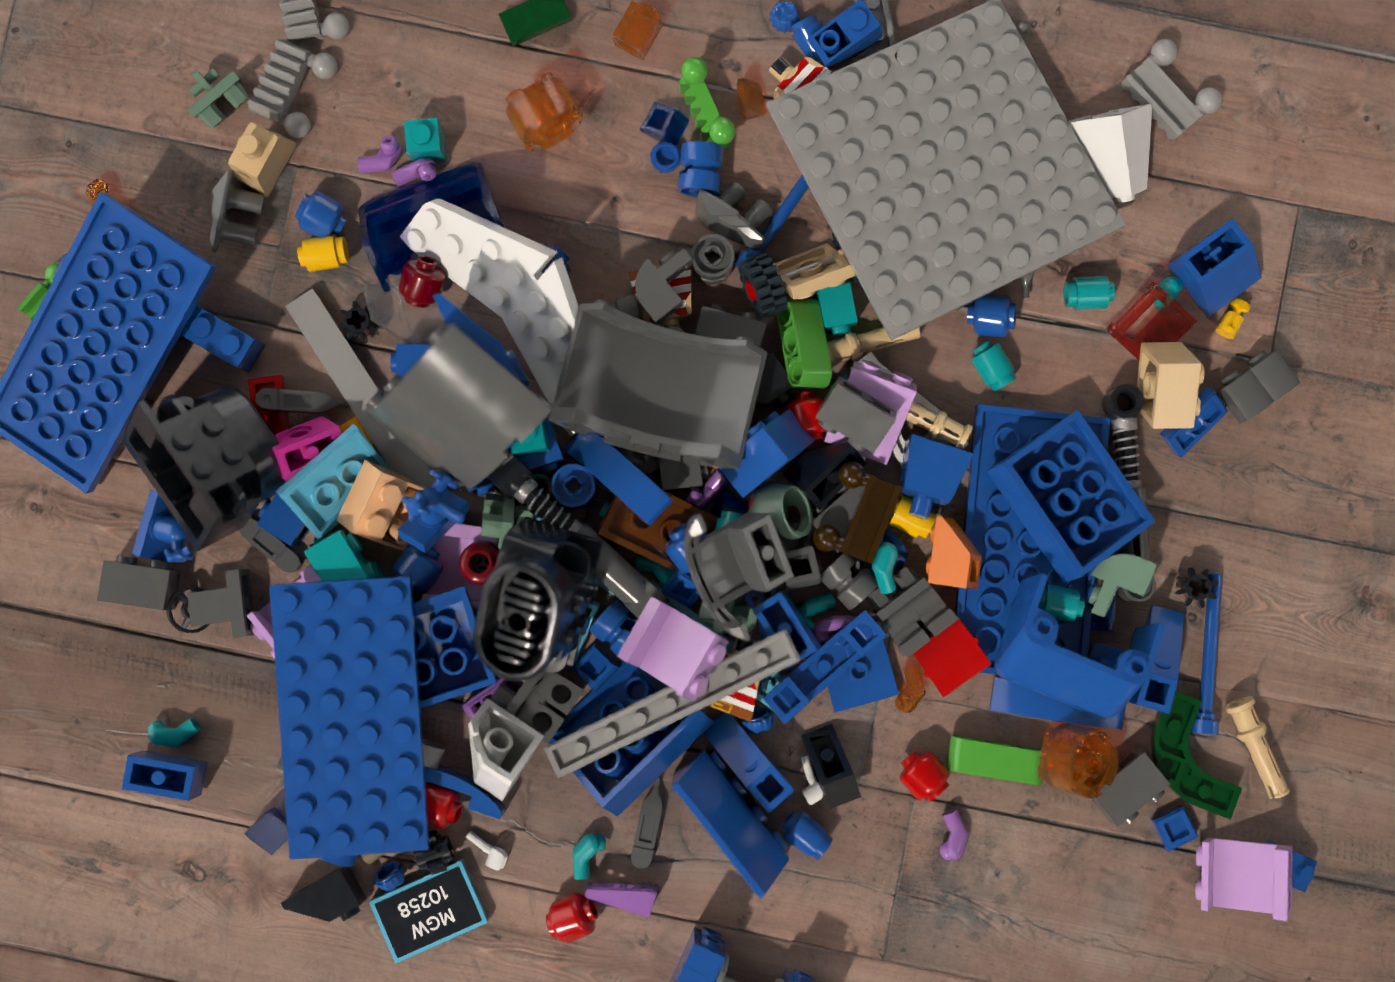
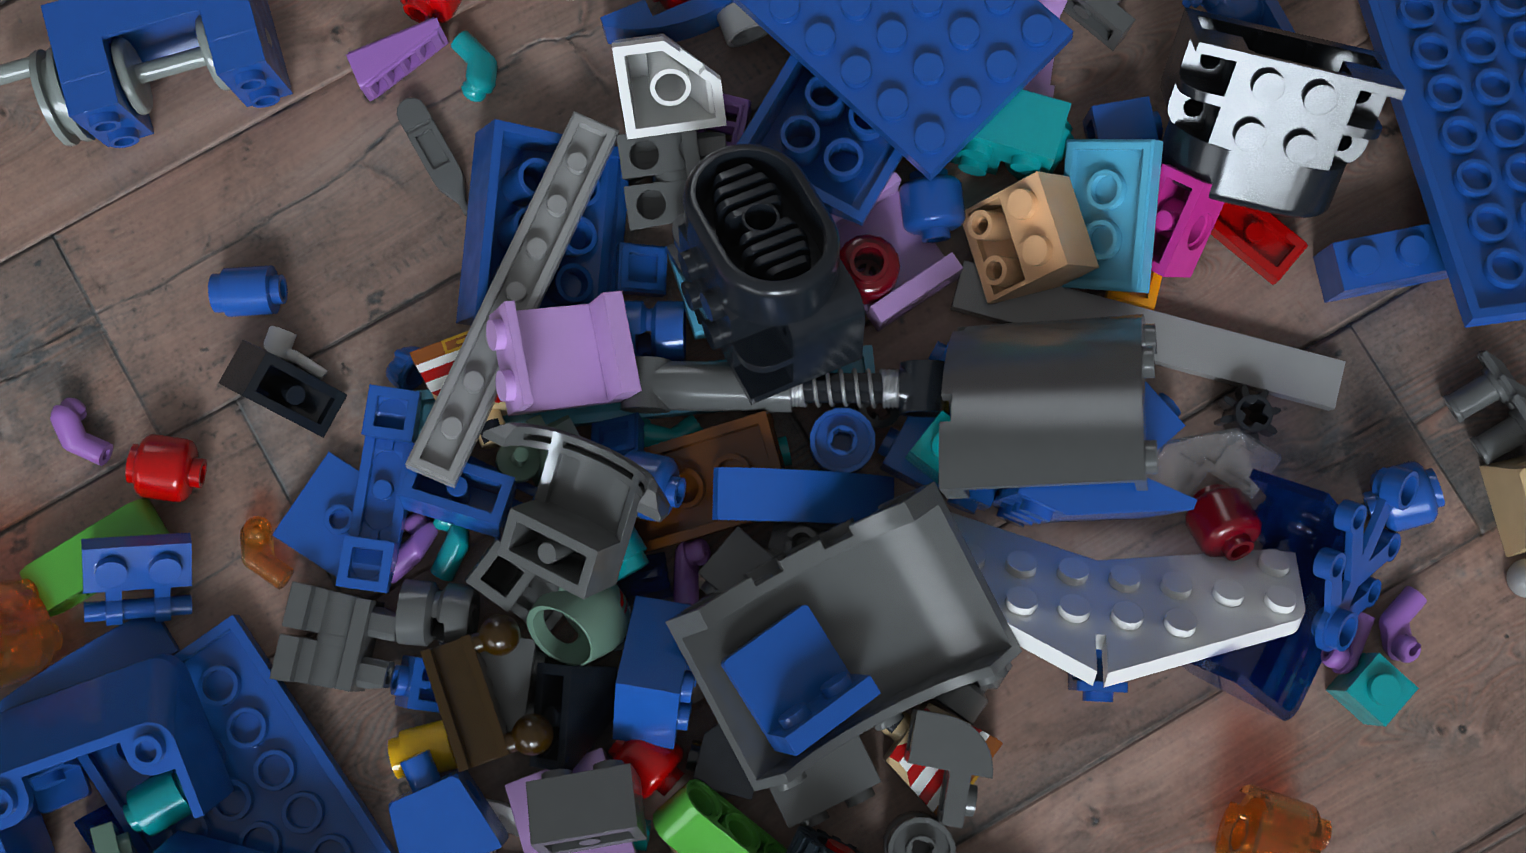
camera: 135 degrees right, 5 degrees down
(272, 547) = (1090, 92): dark grey piece -> none
(296, 401) = (1233, 267): dark grey piece -> none
(323, 253) = (1360, 457): yellow brick -> none
(411, 186) = (1364, 554): none -> blue plant
(432, 512) = (970, 272): blue piece -> none
(501, 516) = (878, 345): sand green hips -> none
(701, 384) = (796, 682): none -> blue bracket
(731, 820) = (340, 227): blue slope -> none
(748, 761) = (374, 311): blue slope -> none
(883, 567) = (404, 660): teal arm -> none
(952, 658) = (239, 628): red piece -> none
(953, 556) = (333, 746): orange slope -> none
(979, 736) = (137, 564): none -> blue plate

